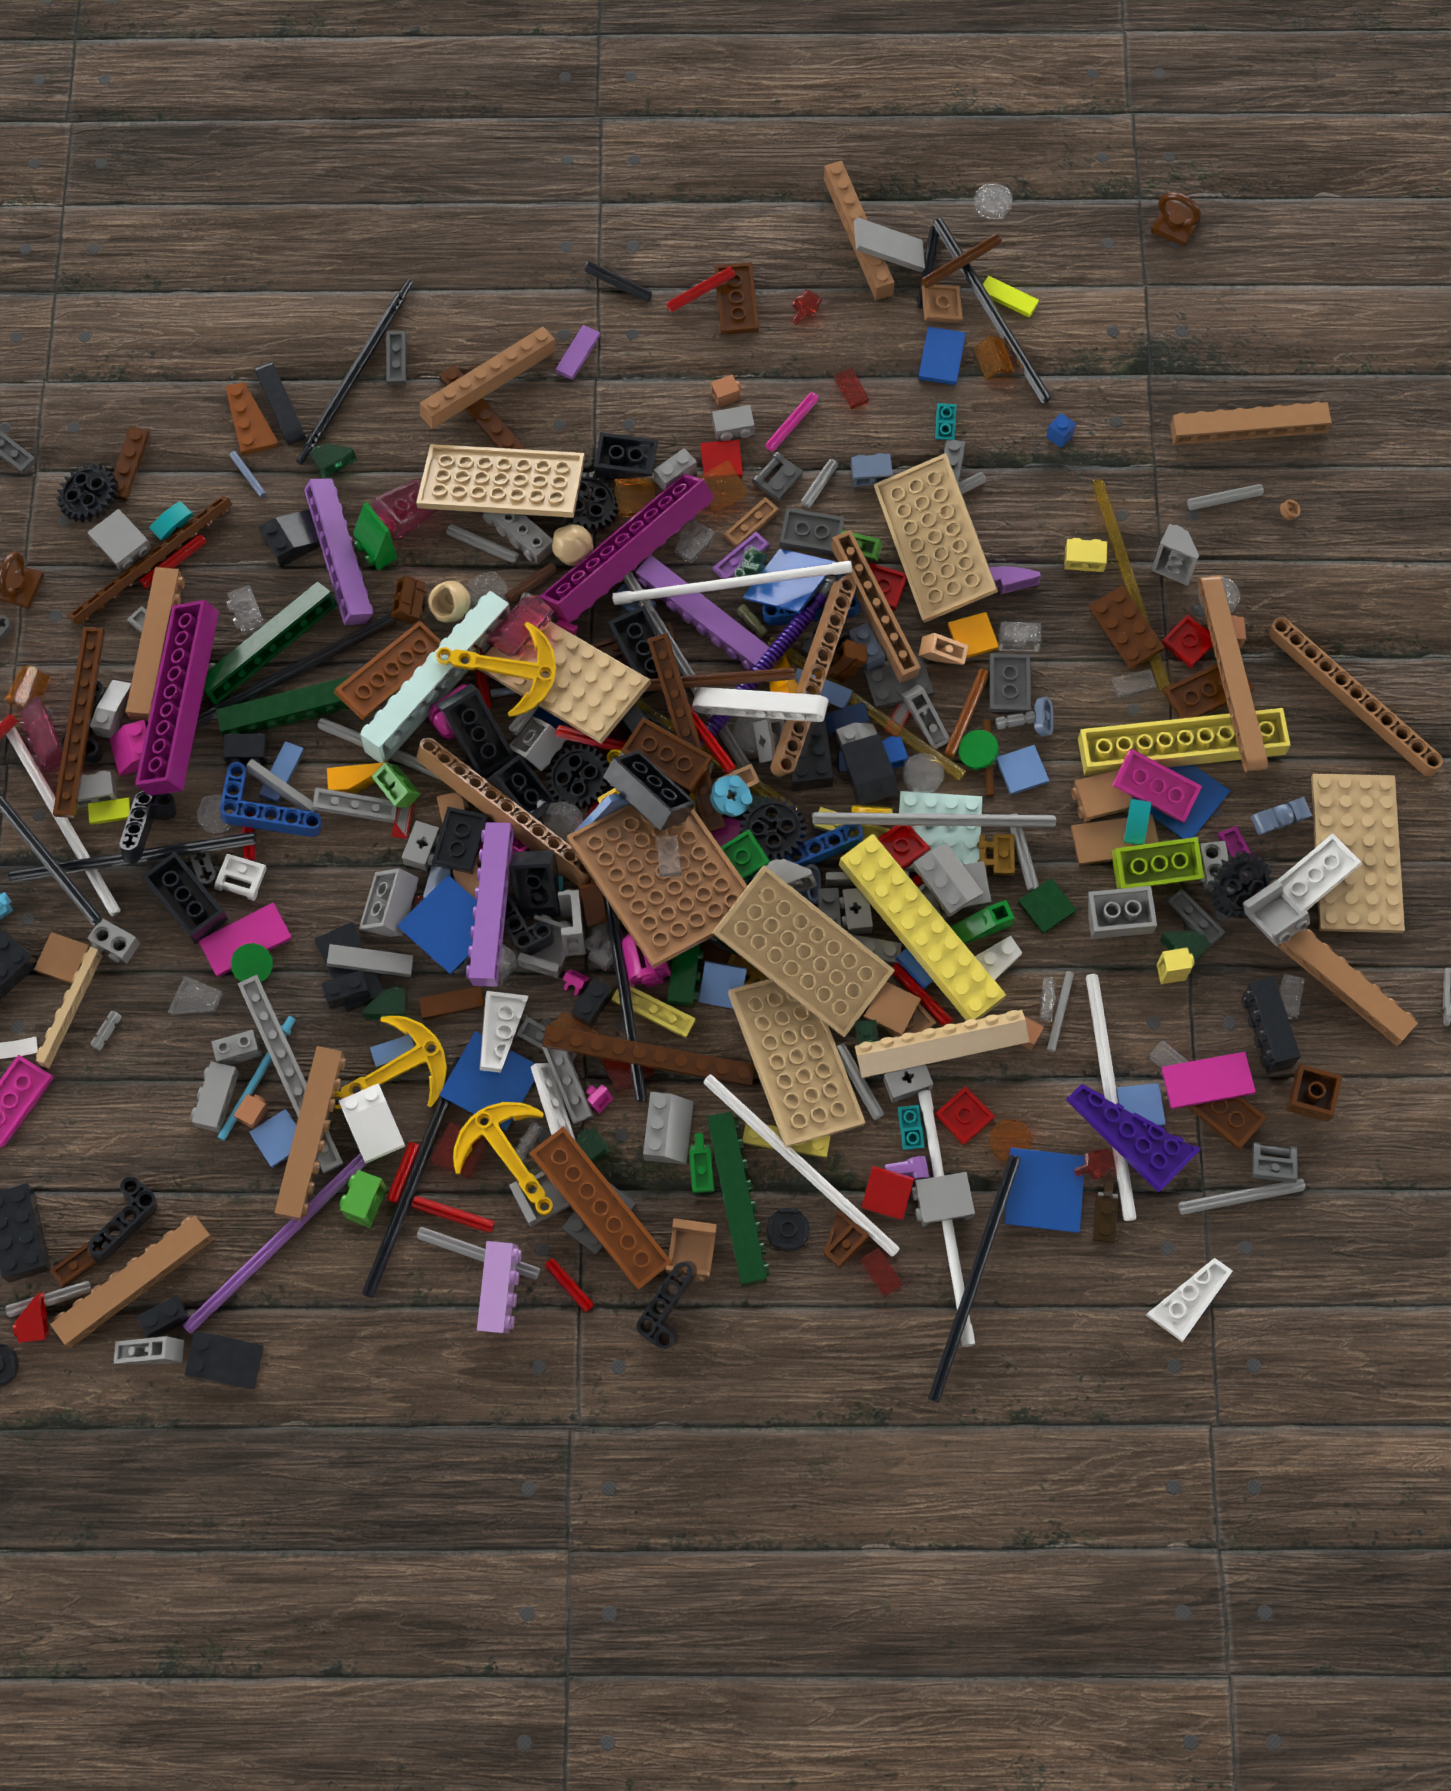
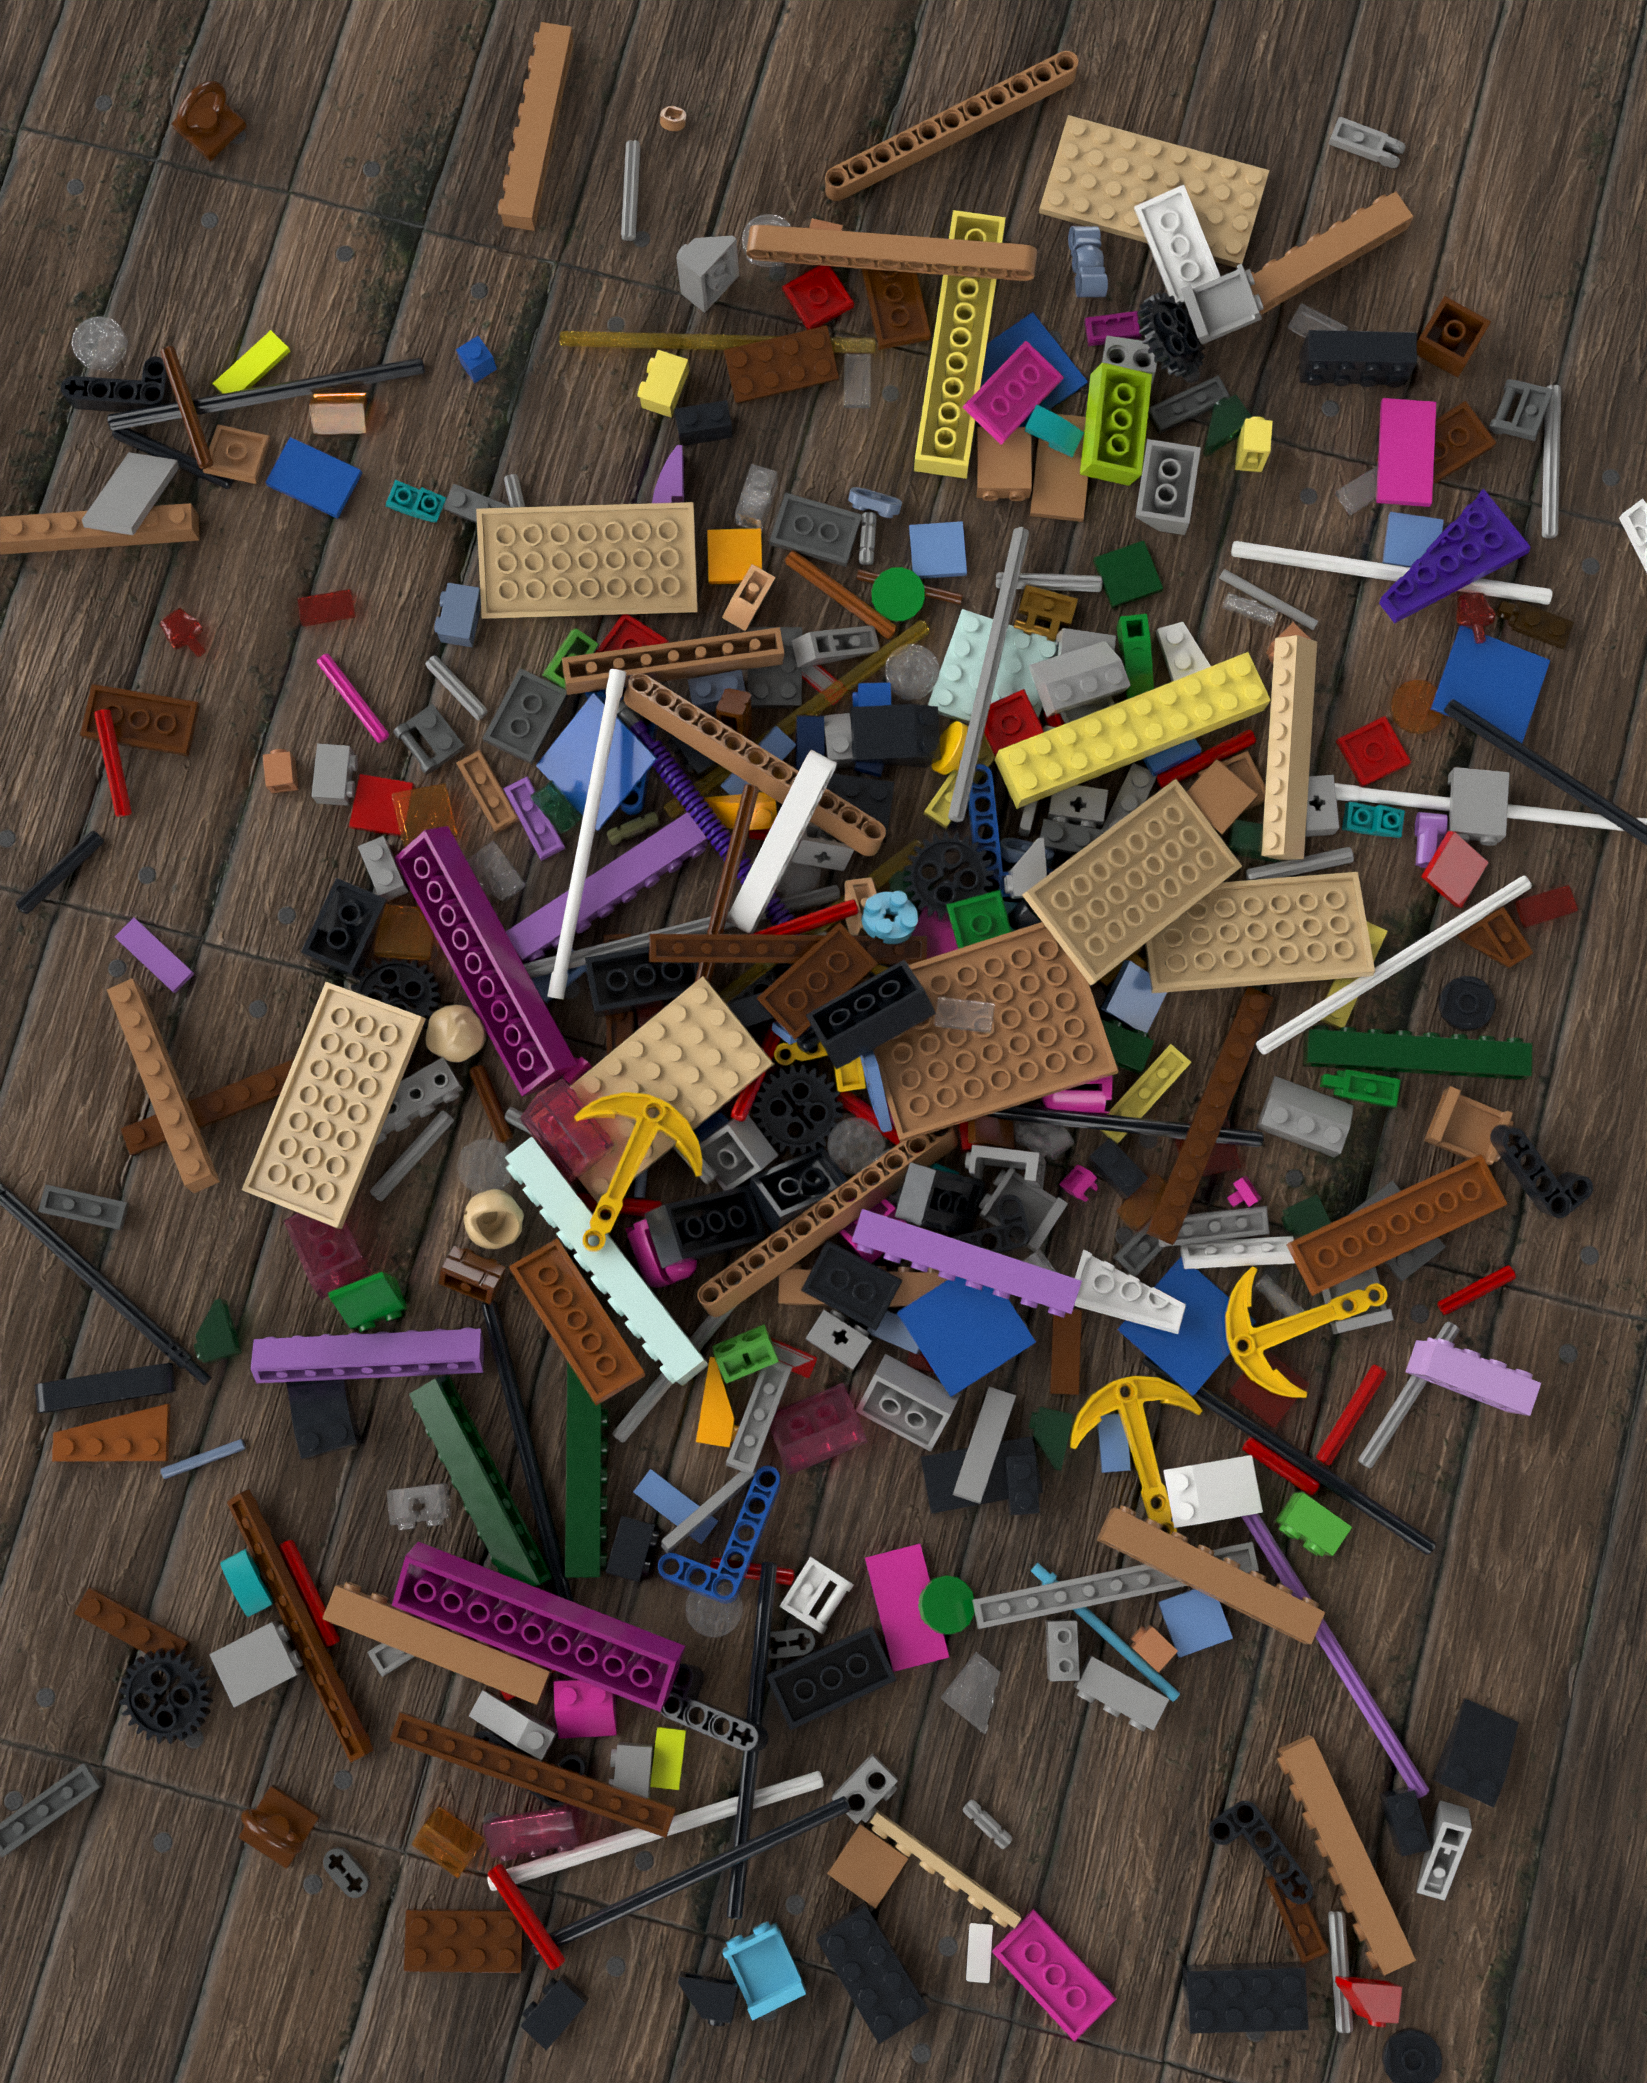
camera: 75 degrees left, 10 degrees up
(355, 847) = (816, 1429): none -> clear pink slope
(962, 220) = (84, 391): none -> black beam
(1064, 587) = (703, 423): none -> black brick

